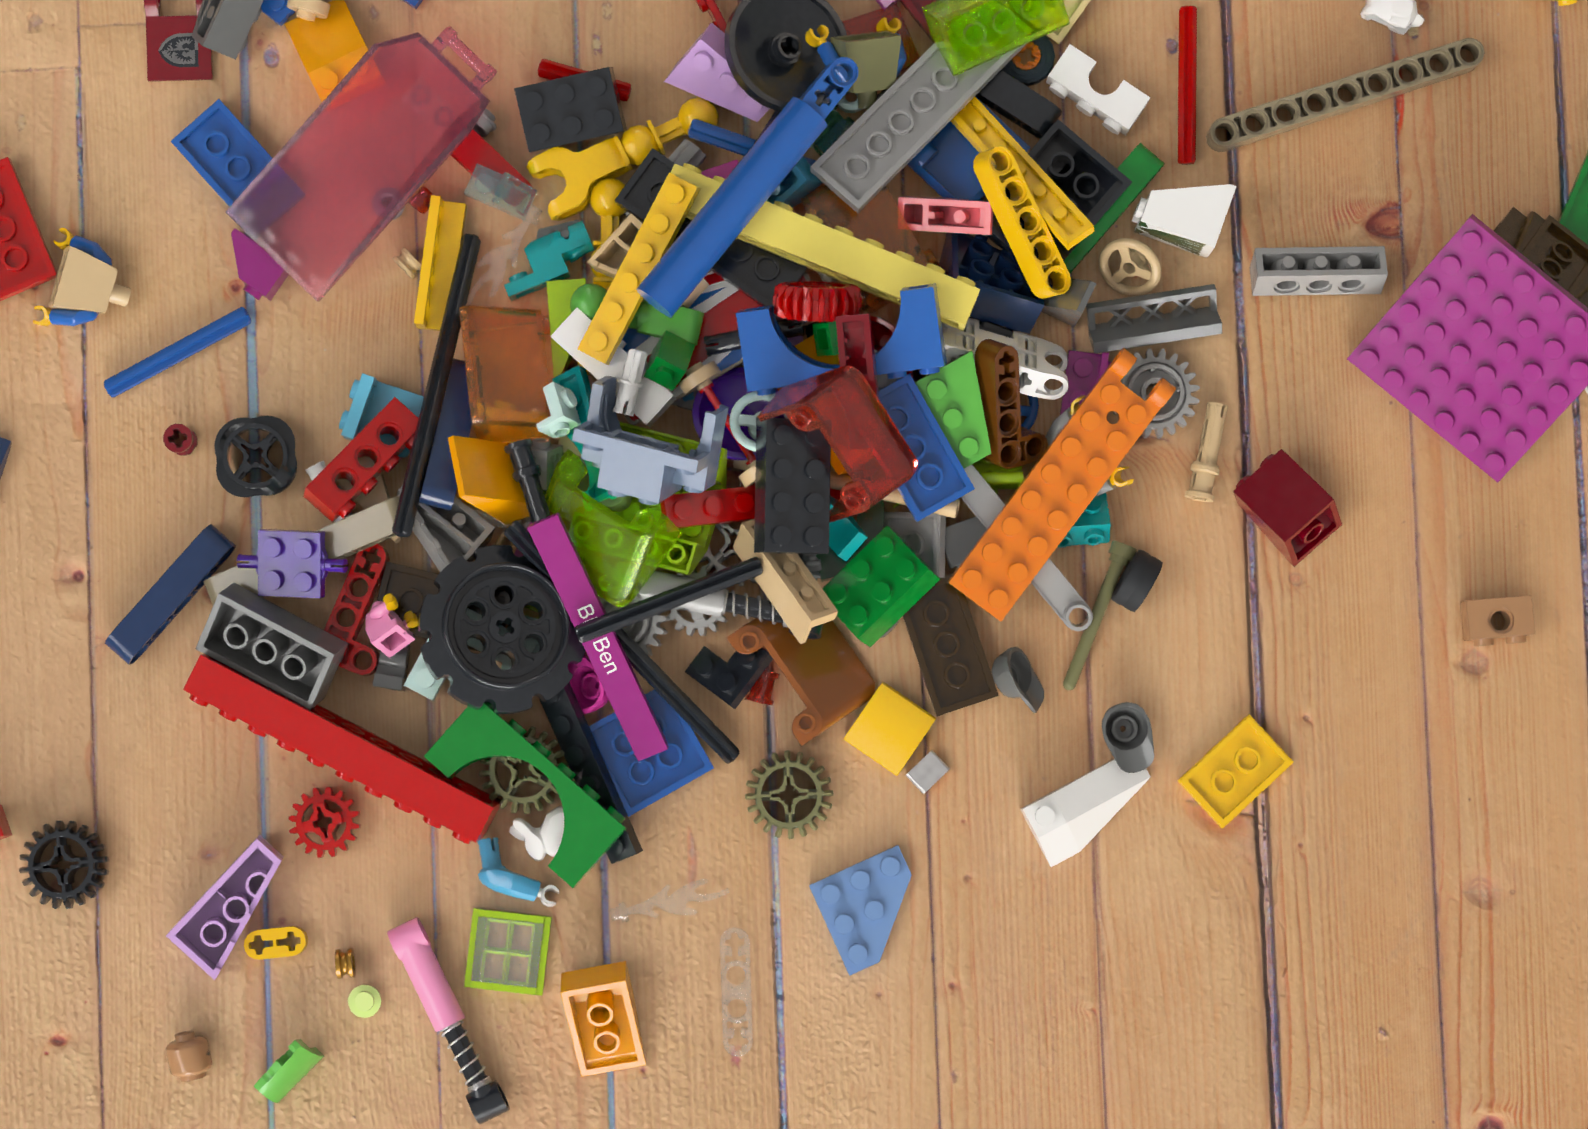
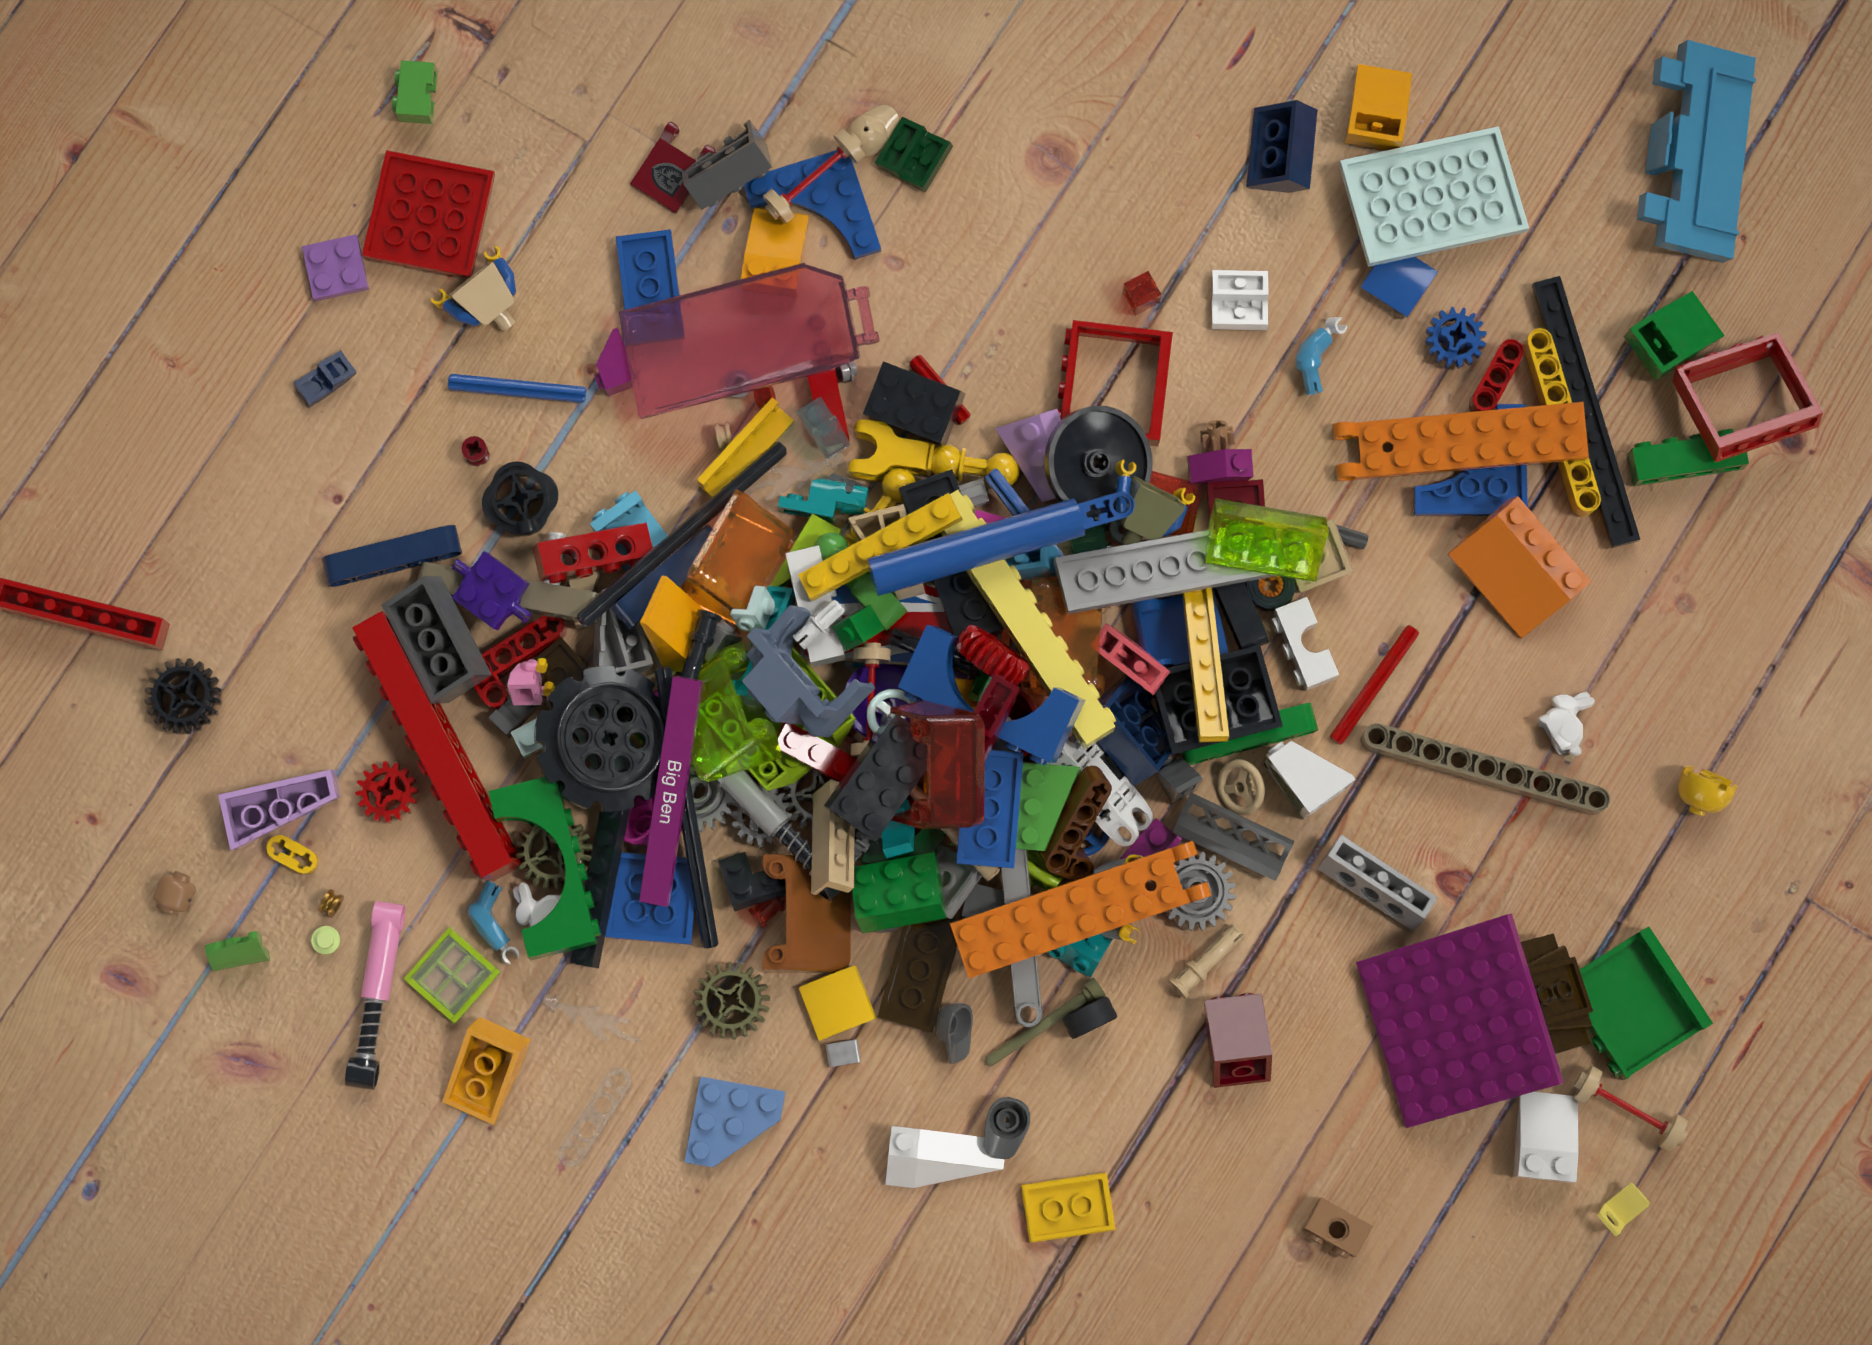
camera: 35 degrees right, 5 degrees down
(668, 599) = (739, 797): black axle -> none
(1008, 215) = (1186, 712): yellow beam -> none

